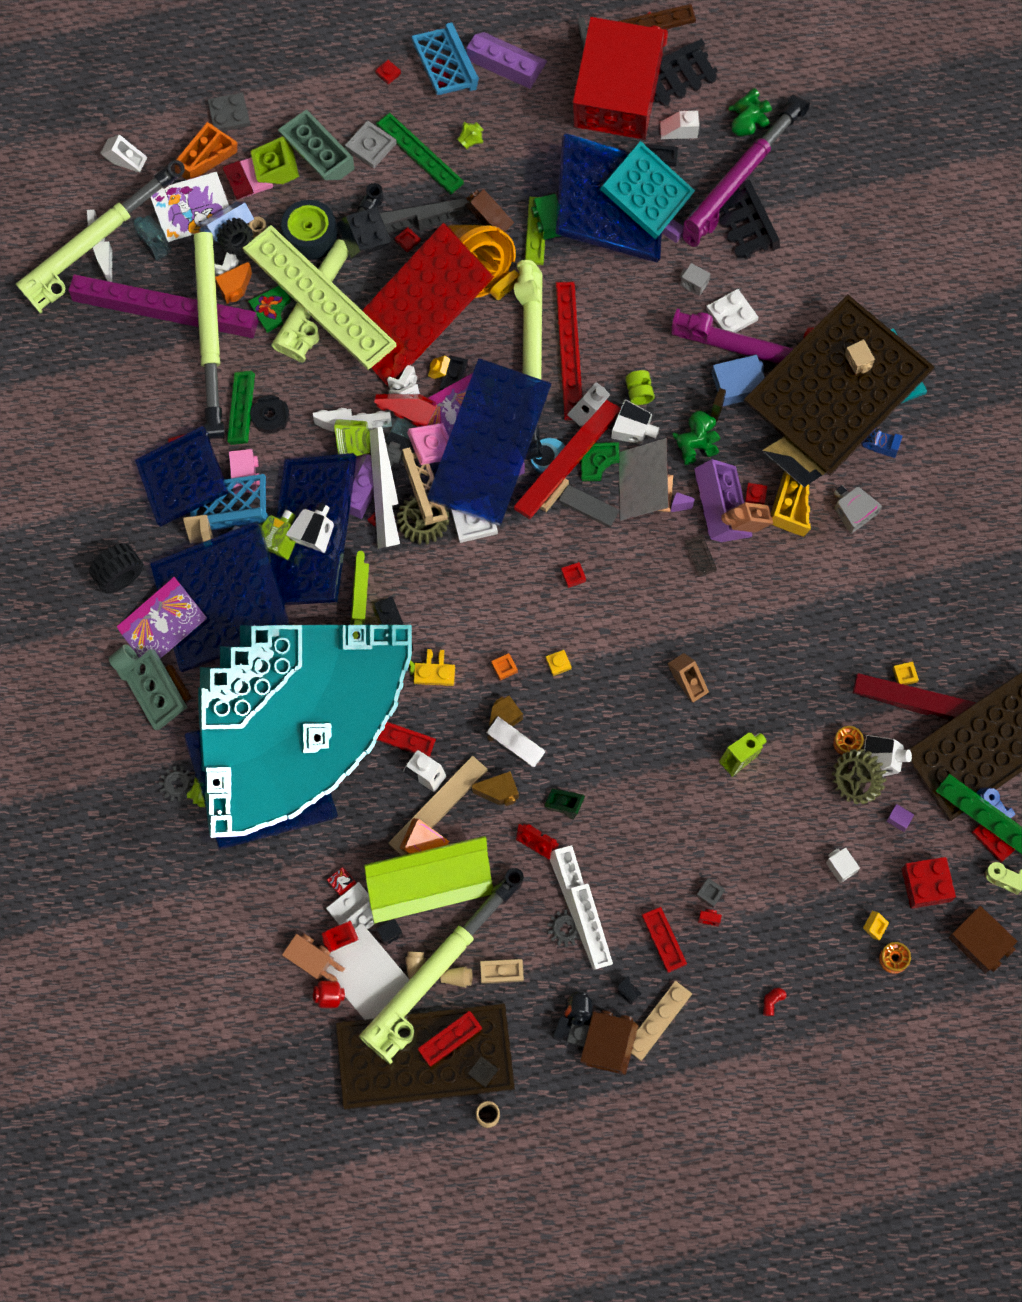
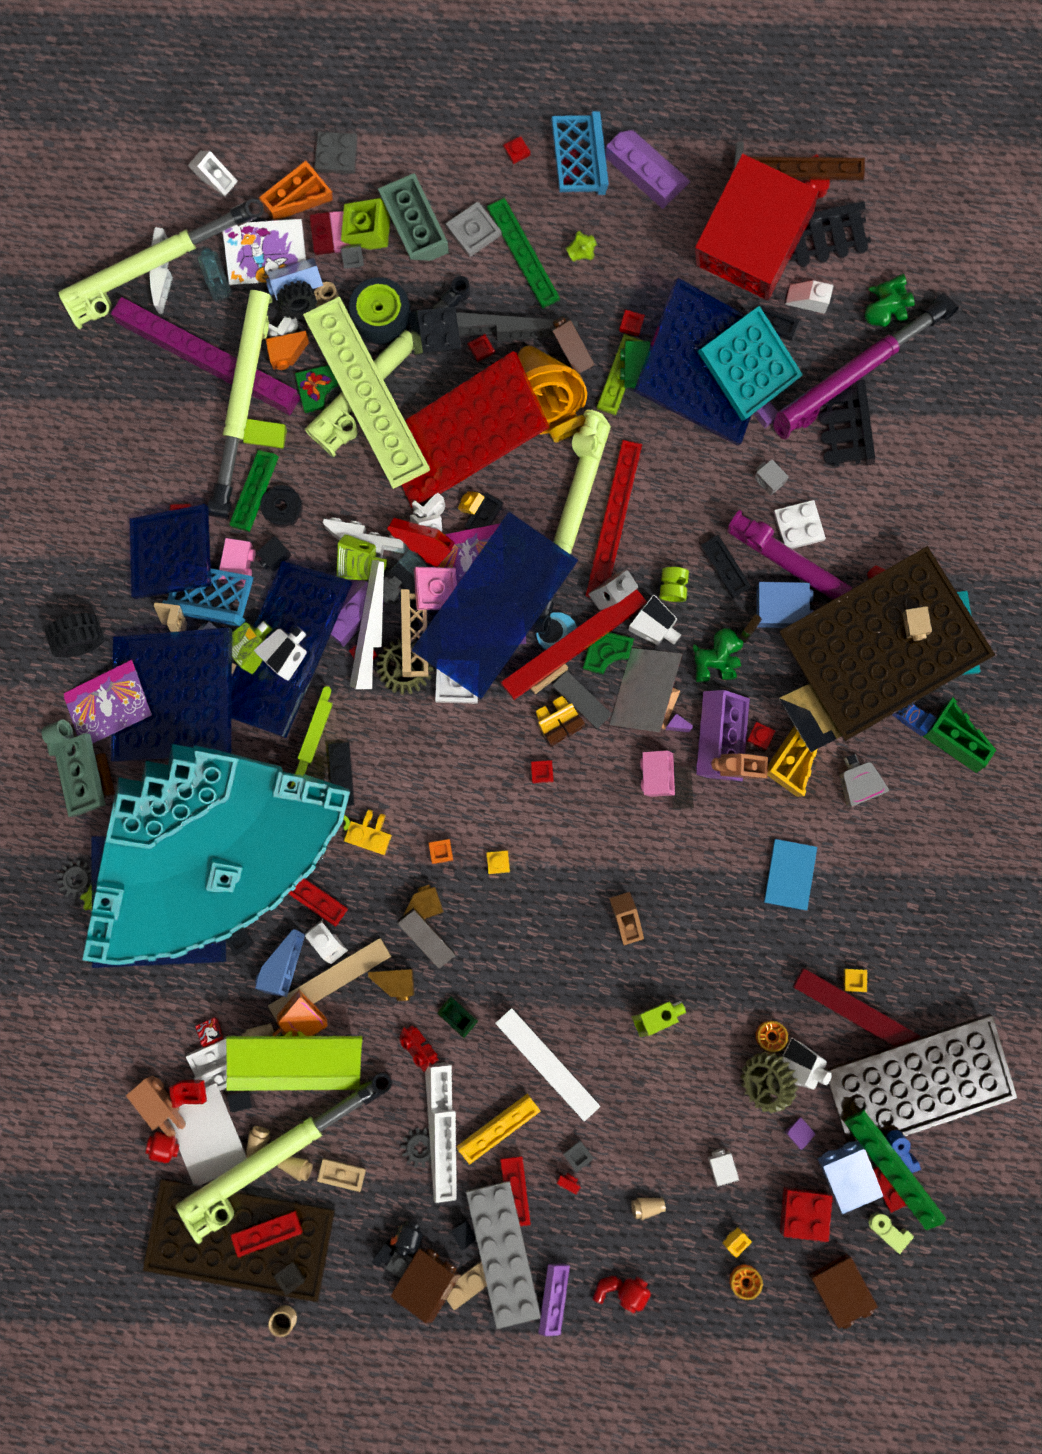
camera: 20 degrees right, 10 degrees up
(237, 358) = (265, 434): none -> lime slope
(270, 192) = (352, 256): none -> dark grey plate
(275, 455) = (273, 554): none -> black brick
(344, 794) = (239, 941): none -> black plate
(388, 808) = (279, 969): none -> medium blue slope
(533, 185) = (632, 323): none -> red plate
(577, 529) = (565, 715): none -> hips
(631, 890) = (498, 1129): none -> yellow tile
(657, 820) = (547, 1064): none -> white slope
(671, 995) = (503, 1254): none -> light grey plate
(676, 547) = (657, 773): none -> bright pink brick
(679, 362) = (725, 566): none -> black plate
(729, 1023) = (554, 1299): none -> medium lavender plate
(786, 919) = (647, 1207): none -> tan cone
(799, 996) = (634, 1294): none -> red head
(819, 602) = (790, 874): none -> dark azure tile
(927, 447) = (960, 738): none -> green wedge
(956, 837) = (850, 1176): none -> brick

